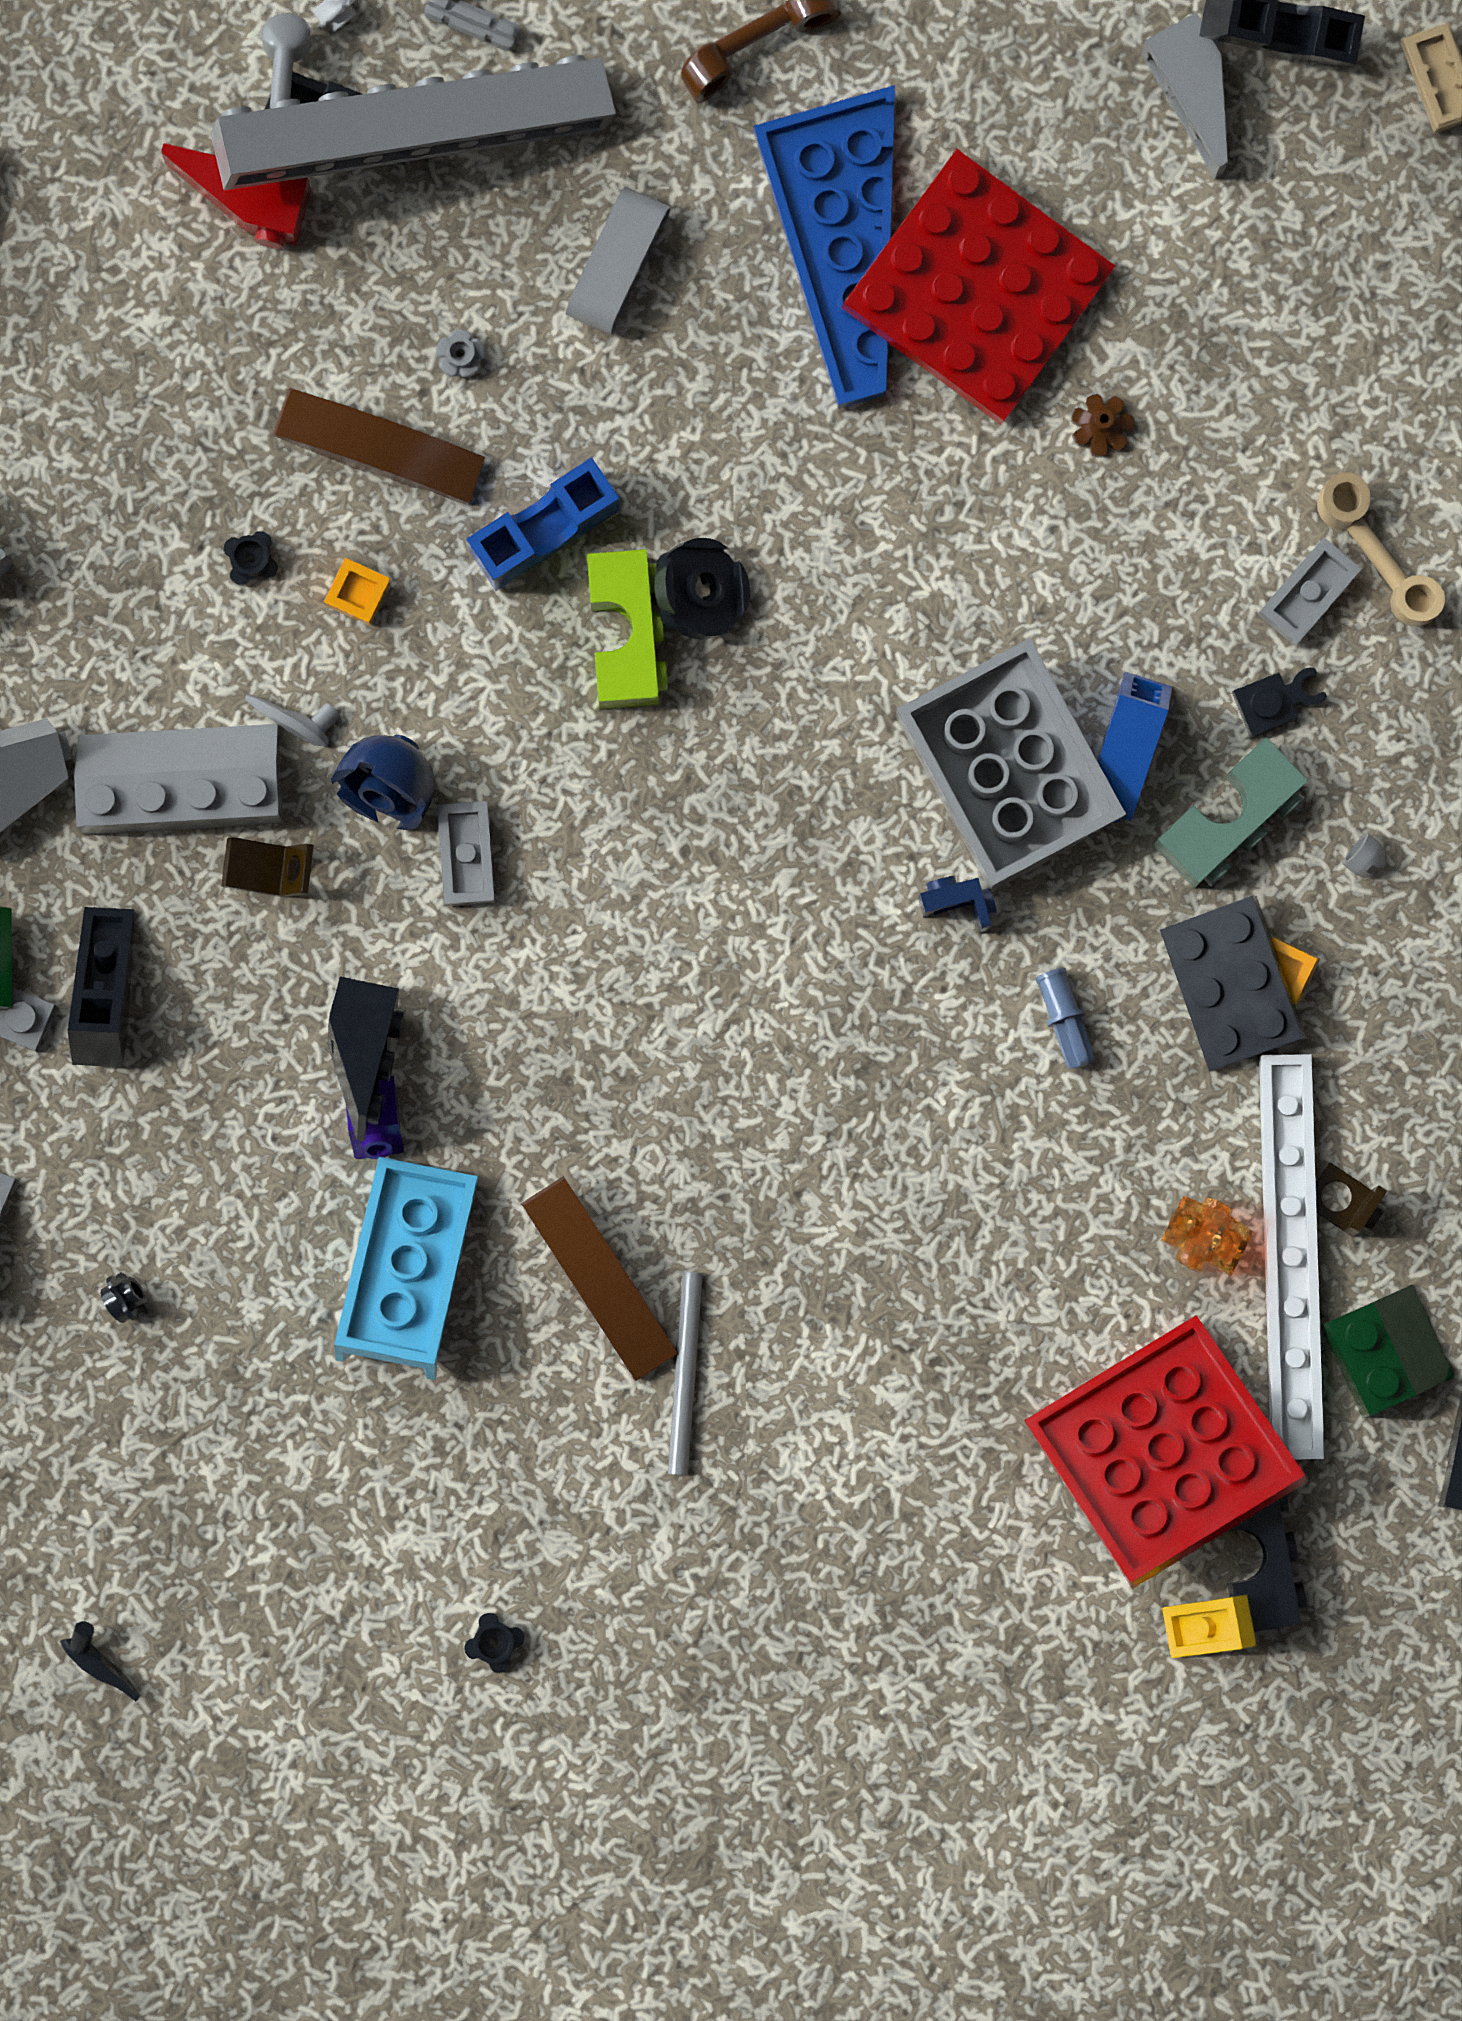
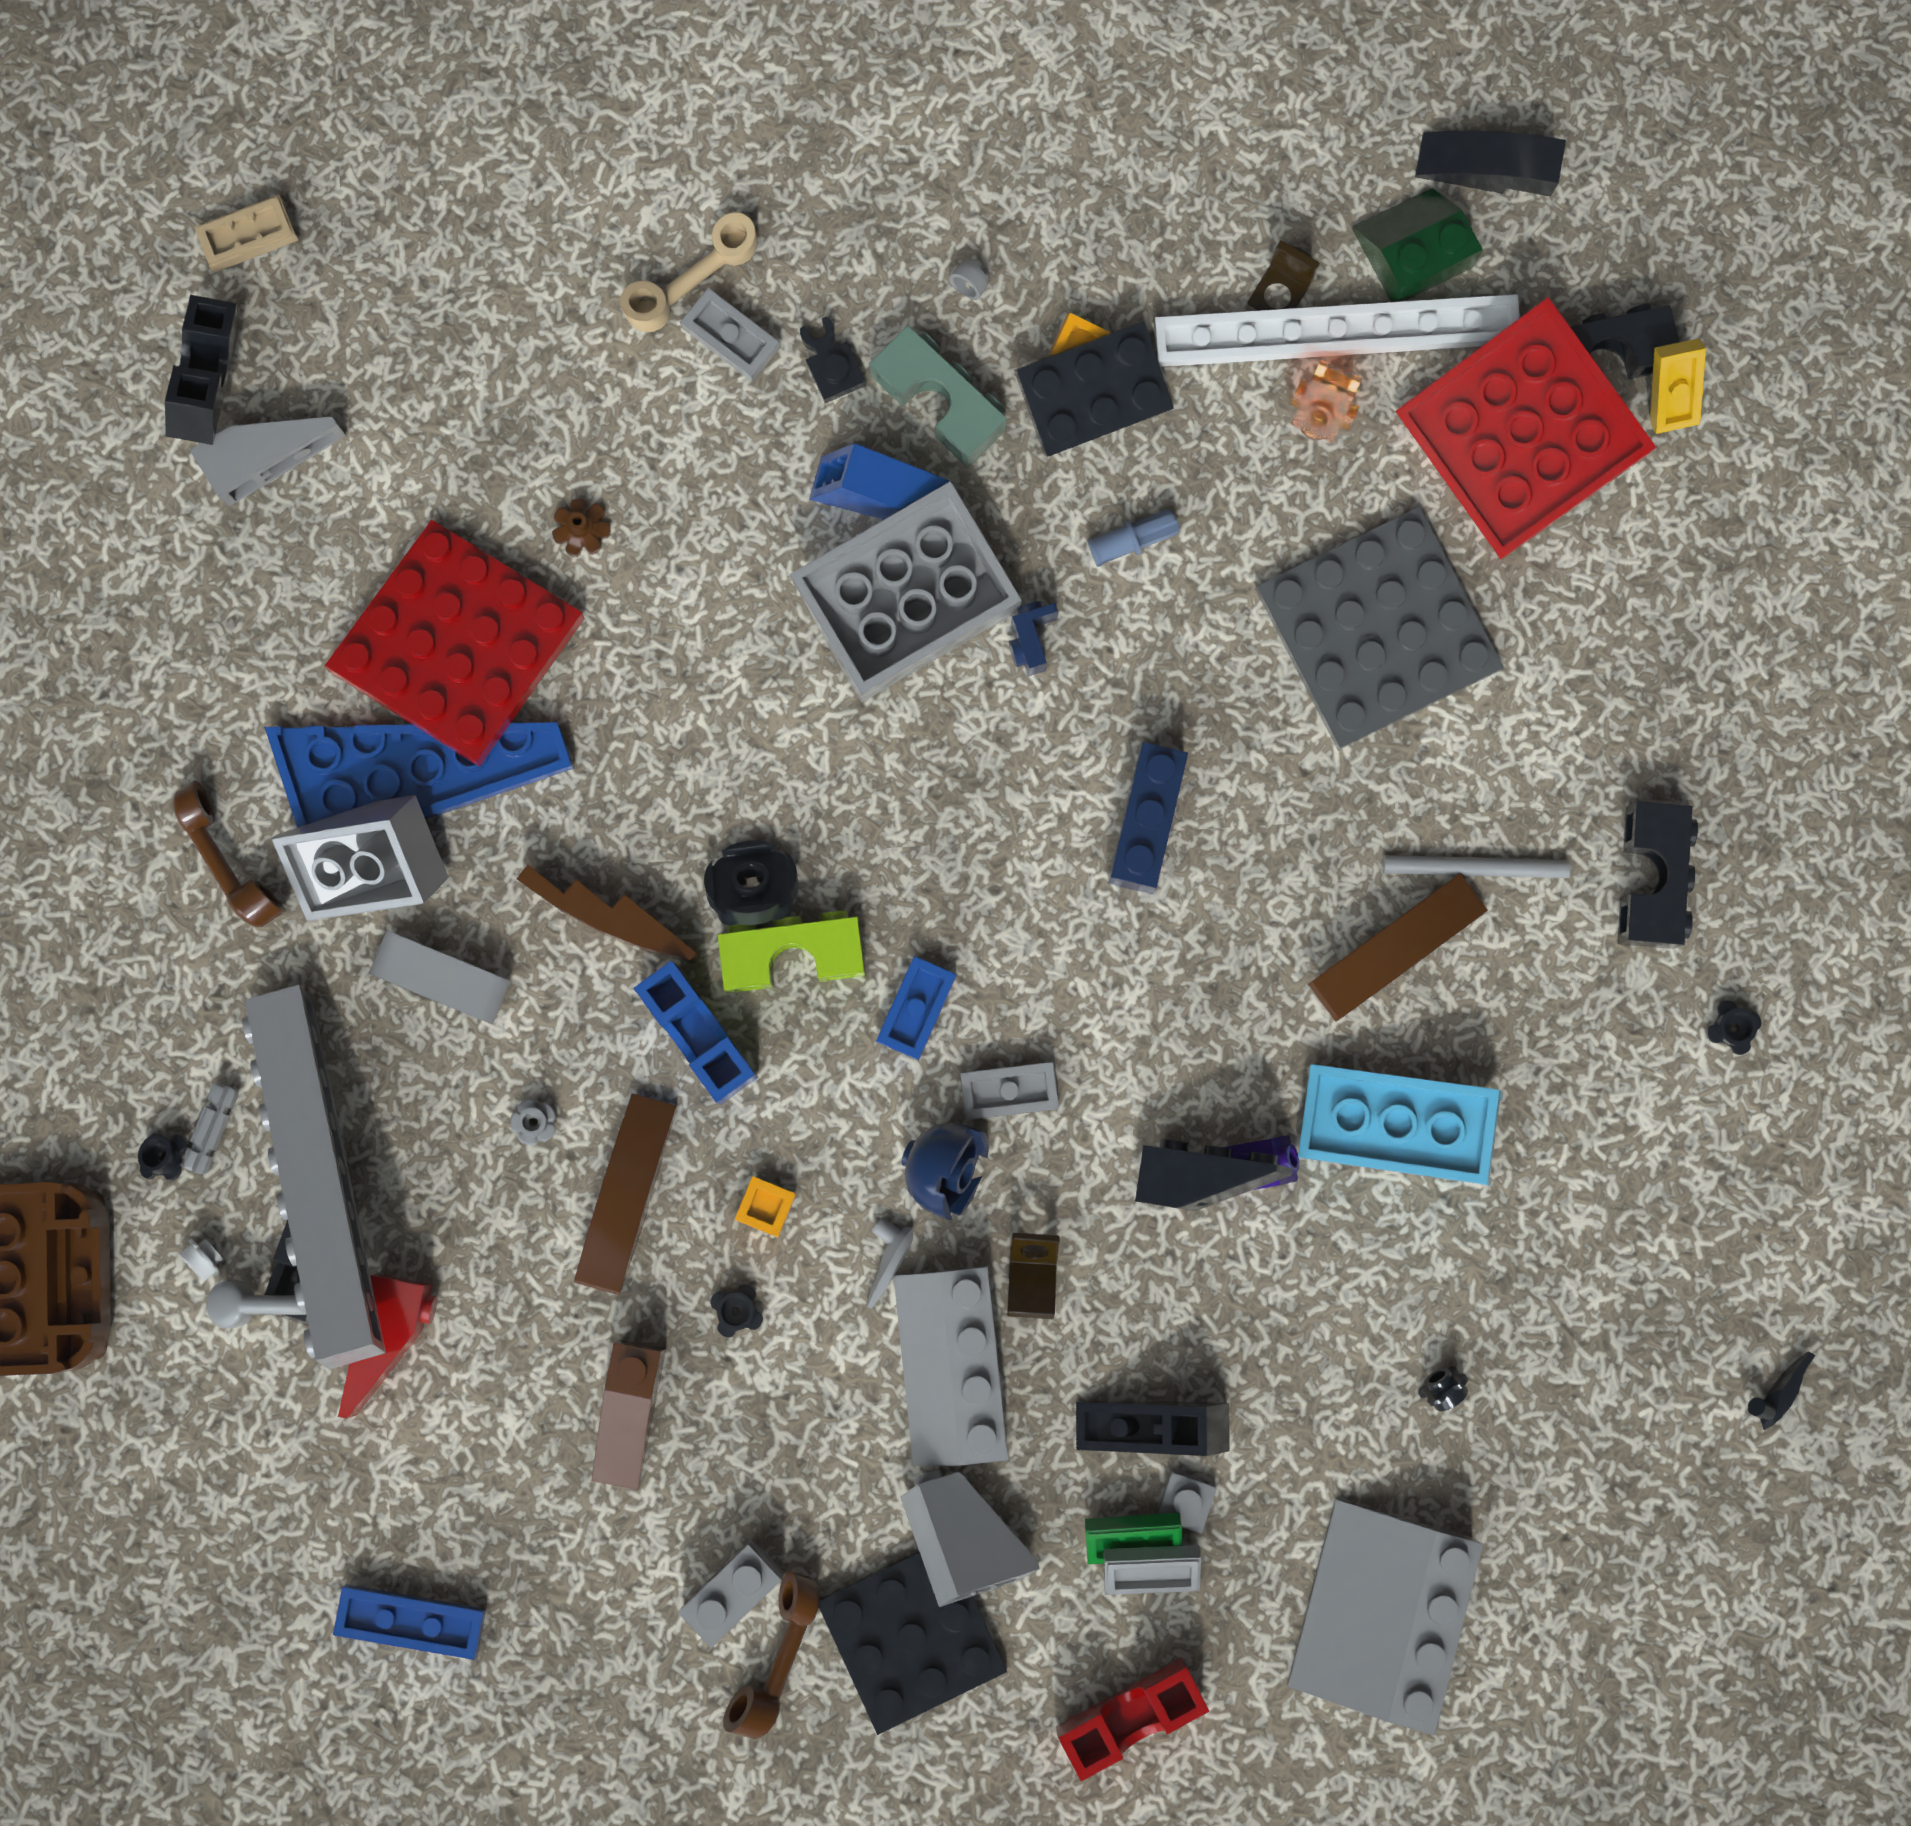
camera: 90 degrees left, 0 degrees up
(152, 440) = (627, 1413): none -> slope
(559, 759) = (916, 1008): none -> blue plate
(618, 1567) = (1664, 837): none -> black arch
(666, 454) = (622, 922): none -> reddish brown slope
(744, 184) = (362, 860): none -> light grey slope
(751, 1014) = (1148, 818): none -> dark blue brick
(954, 1283) = (1379, 628): none -> dark grey plate

